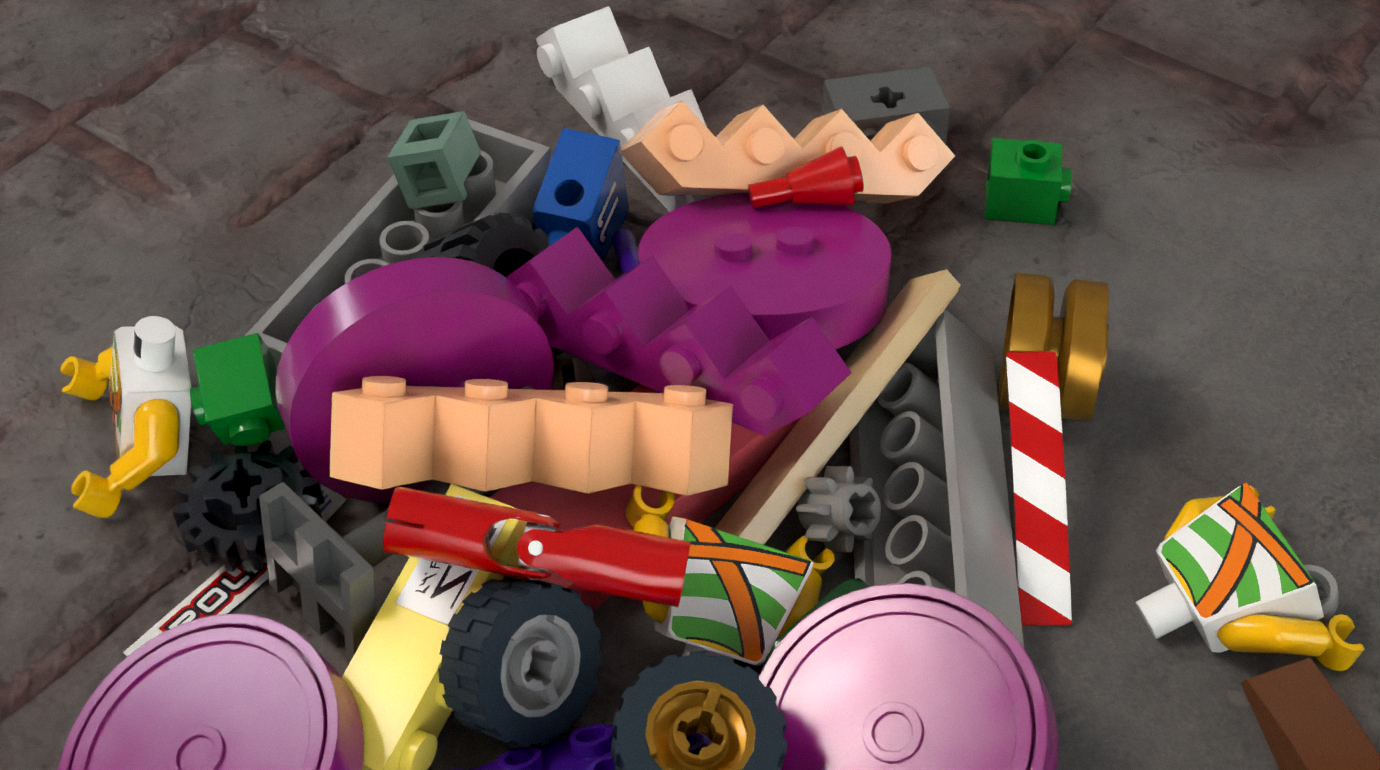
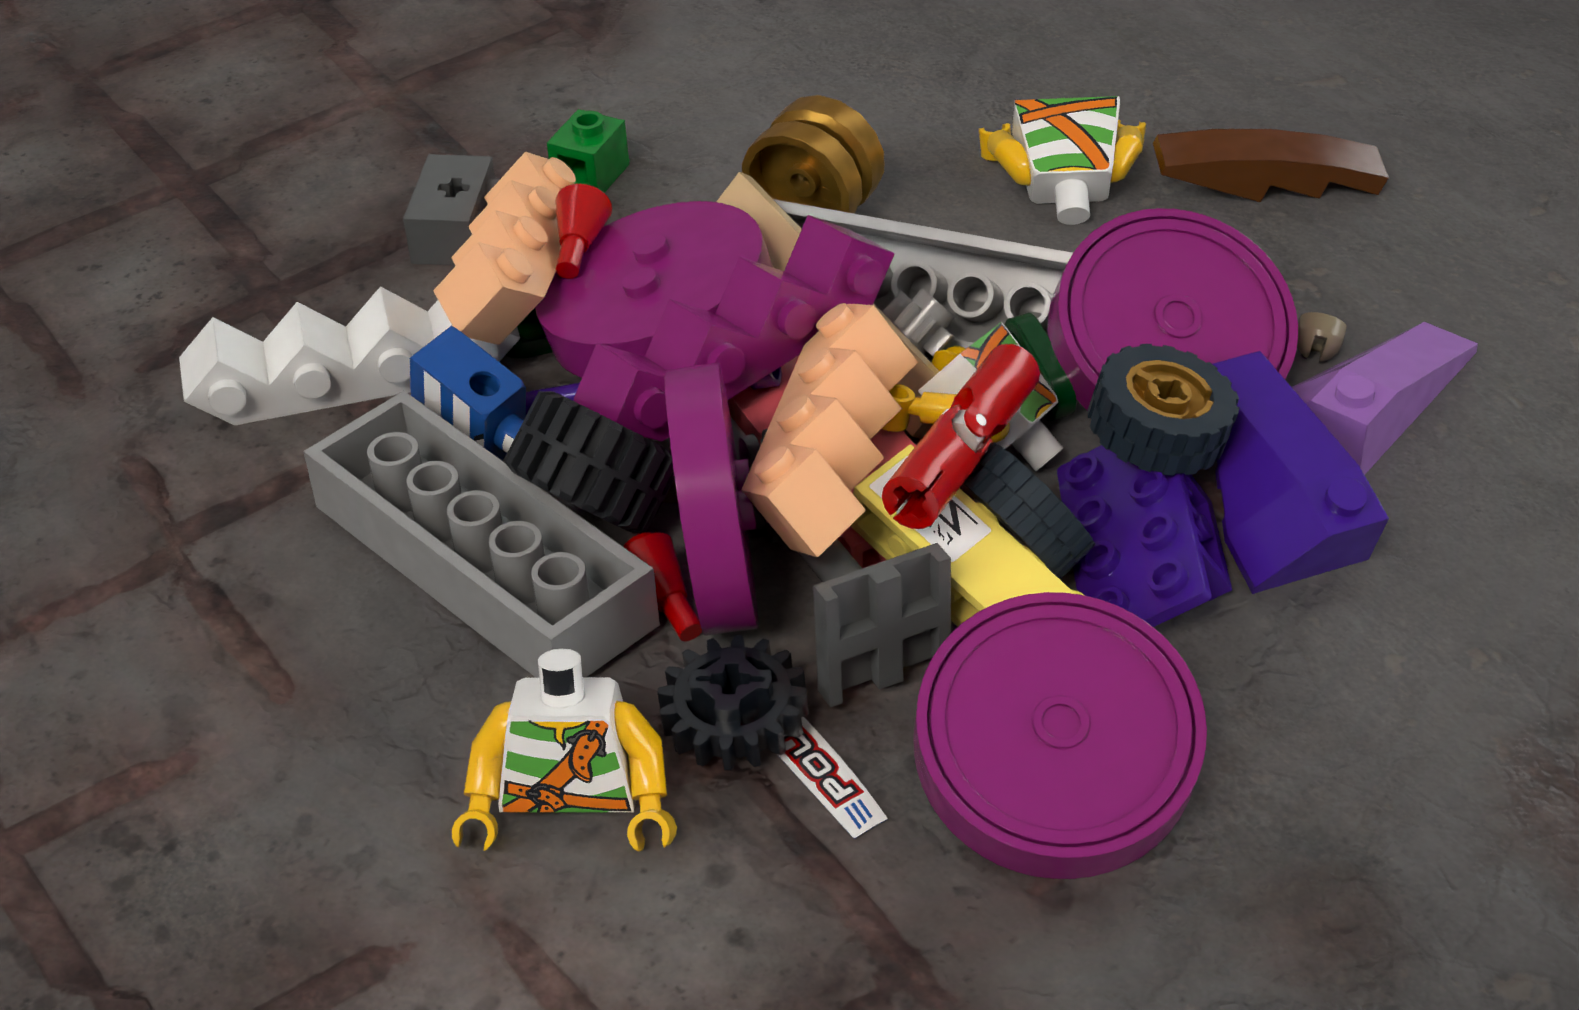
camera: 70 degrees left, 5 degrees down
(237, 390) = (630, 645): green brick -> none
(434, 159) = (404, 445): sand green brick -> none
(1039, 489) = (929, 195): sticker -> none

